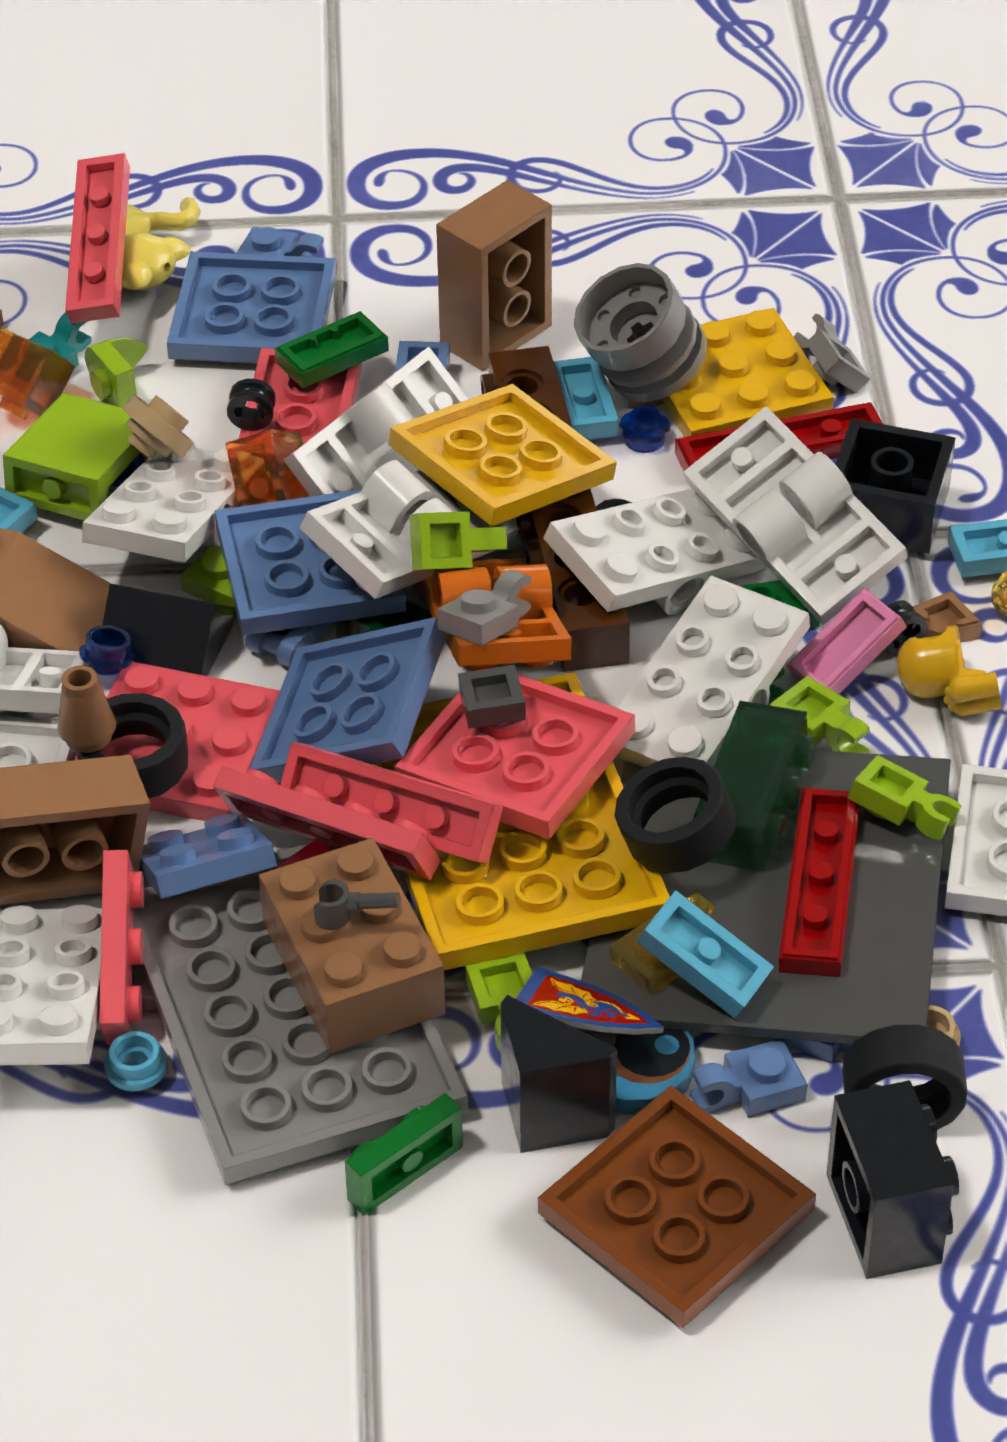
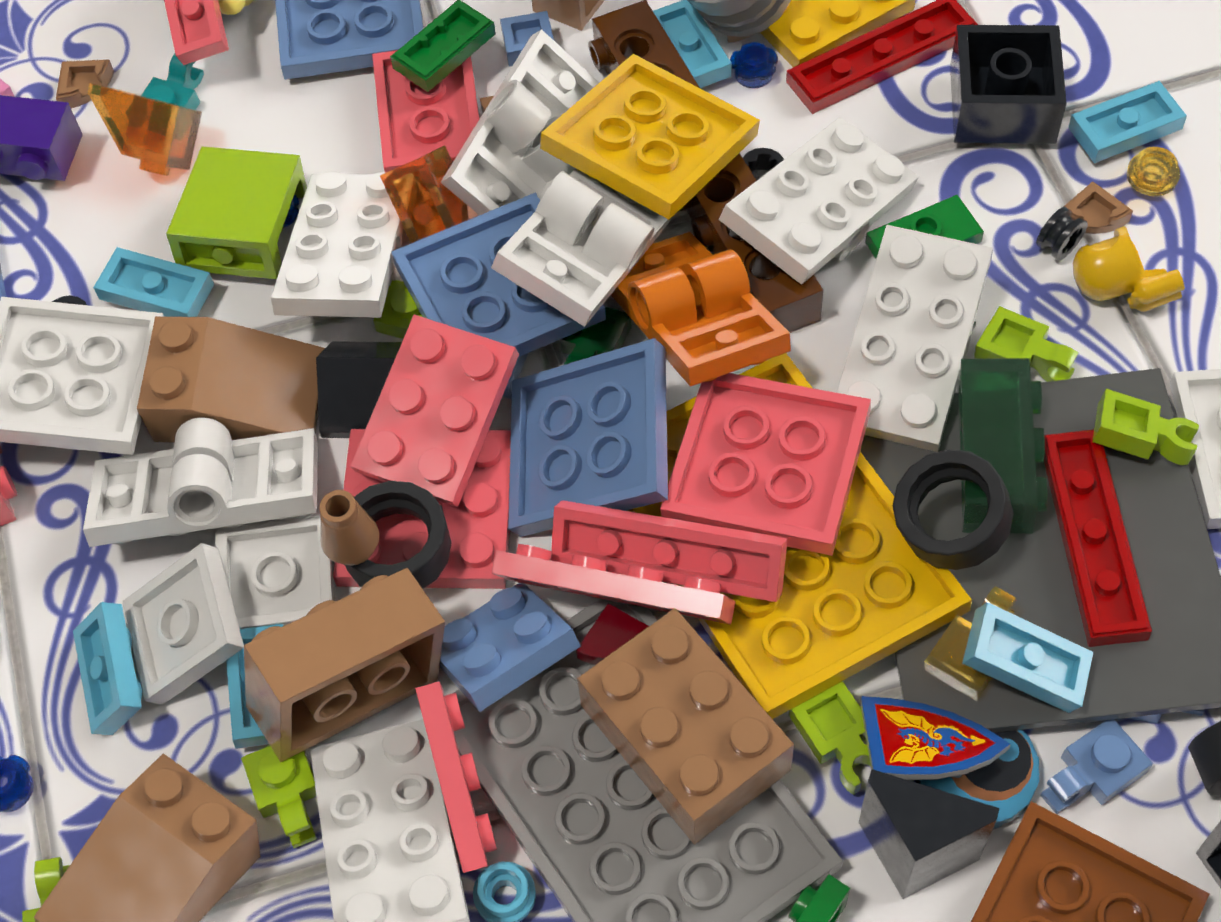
camera: 10 degrees left, 15 degrees up
(107, 650) = (332, 426): clear blue plate -> none
(112, 370) = (237, 110): lime plate -> none
(156, 427) = (308, 173): tan plate -> none
(211, 645) = (435, 409): none -> coral plate
(251, 418) = (397, 118): black bush -> none
(337, 902) = (689, 705): dark grey hand -> none
(447, 540) = (639, 251): lime plate -> none
(484, 614) = (700, 327): light grey plate -> none
(491, 696) = (734, 414): dark grey plate -> none
(795, 514) = (941, 139): white plate -> none
(848, 643) = (1026, 262): bright pink tile -> none

